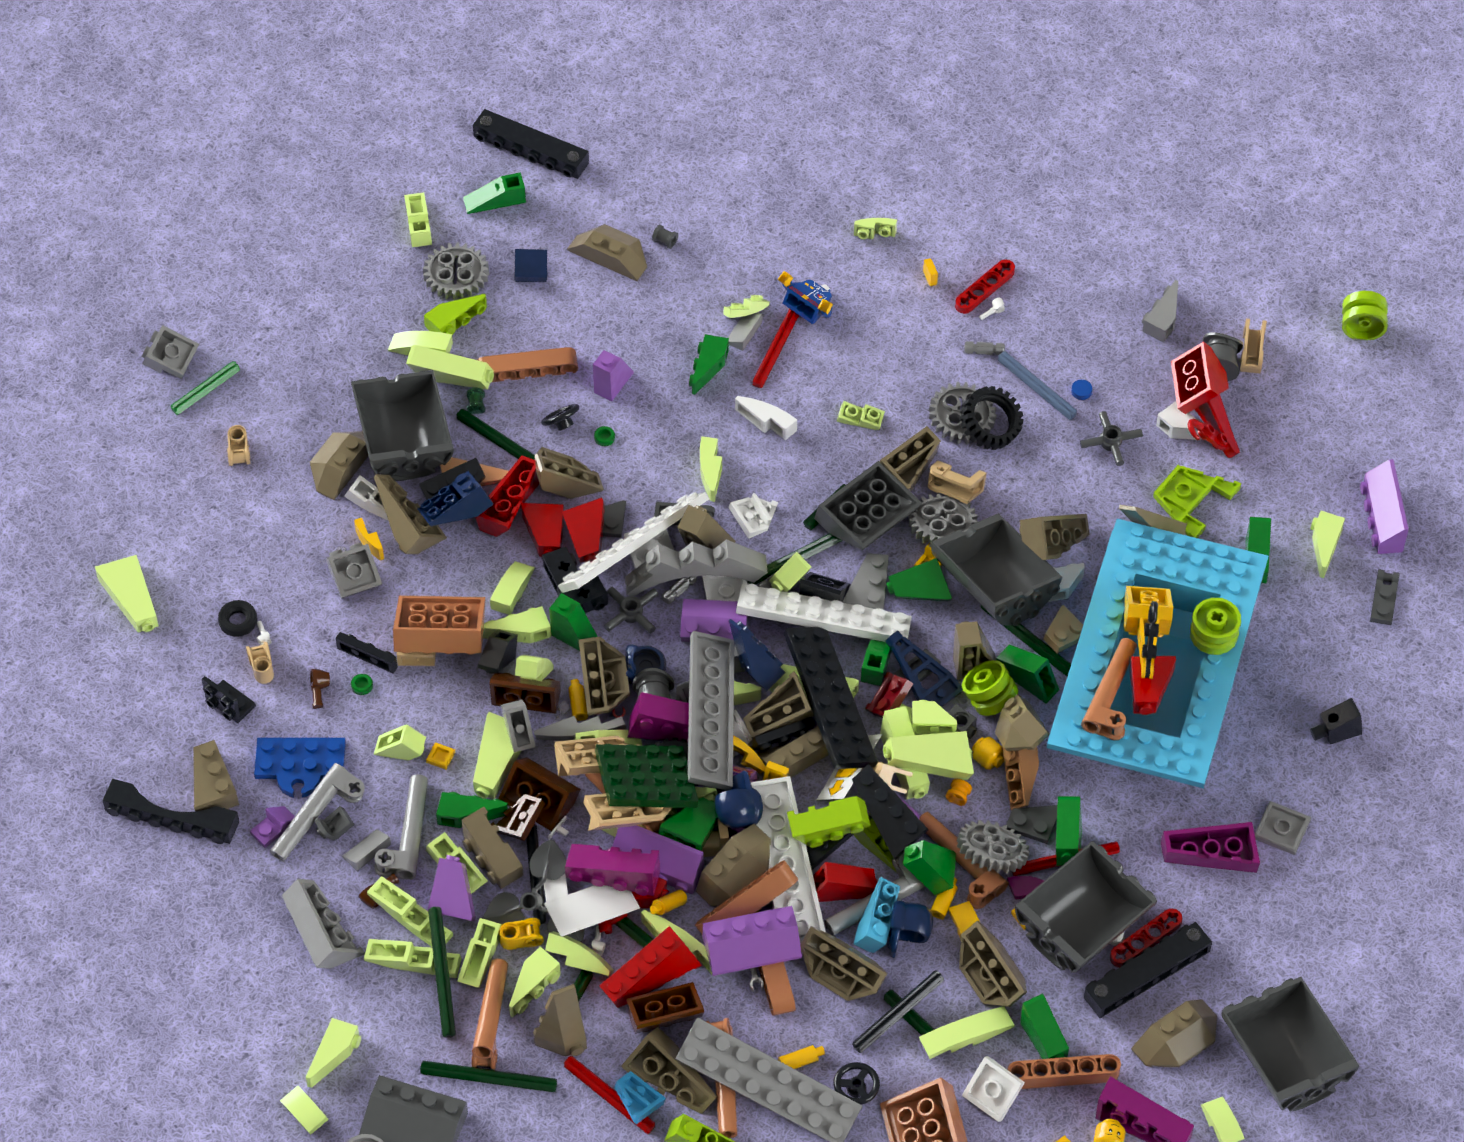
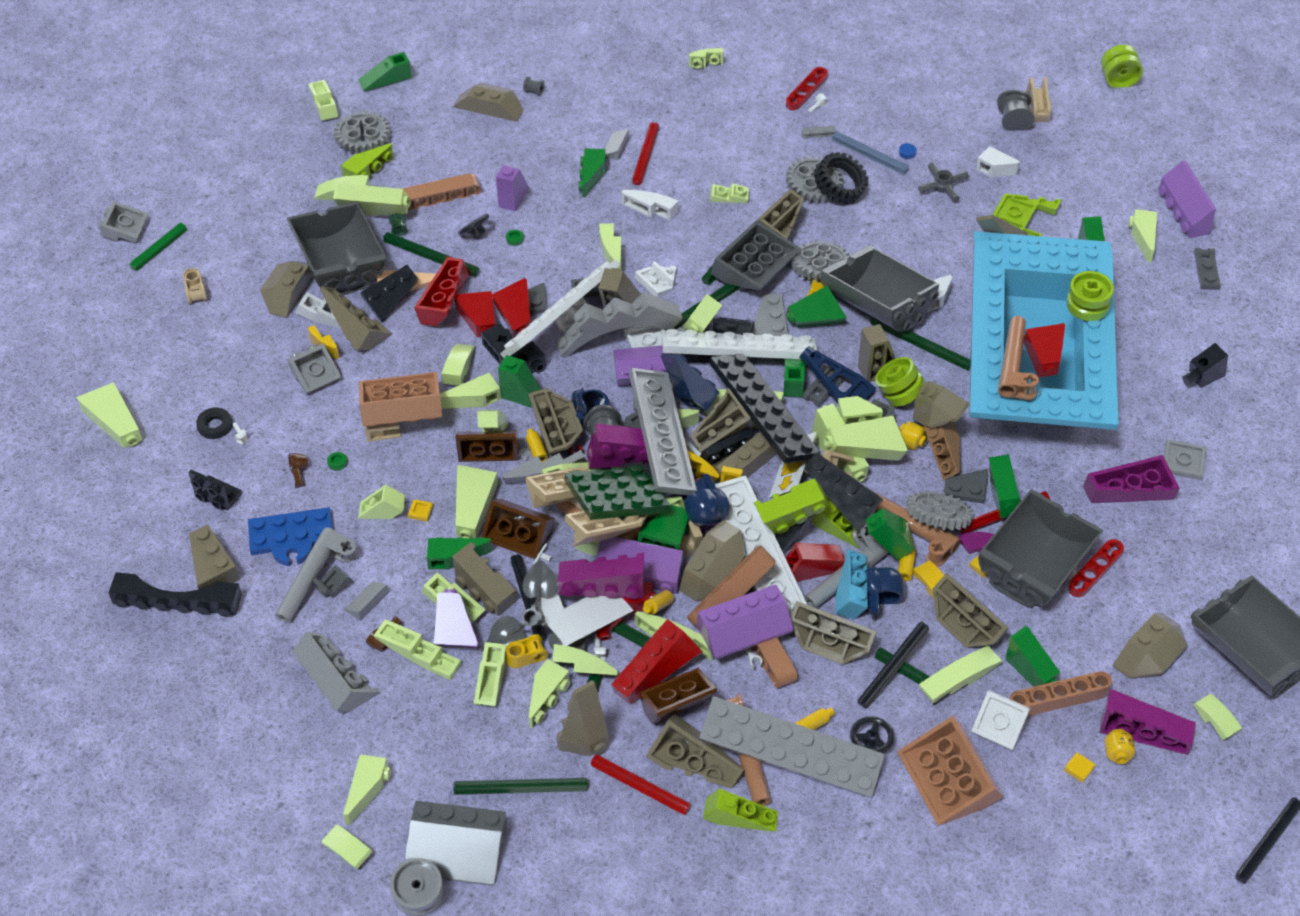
camera: 10 degrees left, 5 degrees down
(260, 660) = (241, 456): tan piece -> none
(273, 826) = (274, 592): medium lavender slope -> none
(366, 652) = (337, 433): black plate -> none
(404, 862) = (404, 603): light grey axle -> none
(407, 957) = (423, 689): yellowish green slope -> none
(442, 972) = (458, 697): dark green axle -> none
(456, 502) = (400, 297): dark blue slope -> none
(484, 1047) = (512, 752): nougat axle -> none
(498, 651) = (457, 414): black slope -> none
(518, 725) = (488, 470): light grey slope -> none
(520, 817) = (506, 549): reddish brown wing -> none
(530, 265) = (425, 120): dark blue piece -> none
(531, 144) = (407, 34): black piece -> none
(565, 475) = (487, 269): dark tan wedge -> none
(628, 603) = (568, 366): dark grey bar -> none
(638, 1096) = (669, 781): dark azure wing -> none
(678, 588) = (605, 344): light grey axle -> none
(749, 306) = (614, 126): yellowish green slope -> none
(807, 298) = (663, 112): blue torso -> none
(889, 695) = (814, 398): dark red plate -> none
(930, 272) = (759, 83): yellow tile -> none
(955, 484) = (823, 231): tan piece -> none
(958, 792) = (894, 471): light orange wheel -> none
(1030, 672) = (932, 364): green slope -> none
(1053, 534) = (919, 253): dark tan wedge -> none
(1063, 630) = (949, 331): tan wing -> none
(1147, 614) = (1034, 298): yellow slope -> none
(1147, 969) = (1106, 594): black piece -> none
(1162, 318) = (958, 89): light grey slope -> none
(1198, 386) = (1005, 127): red slope -> none

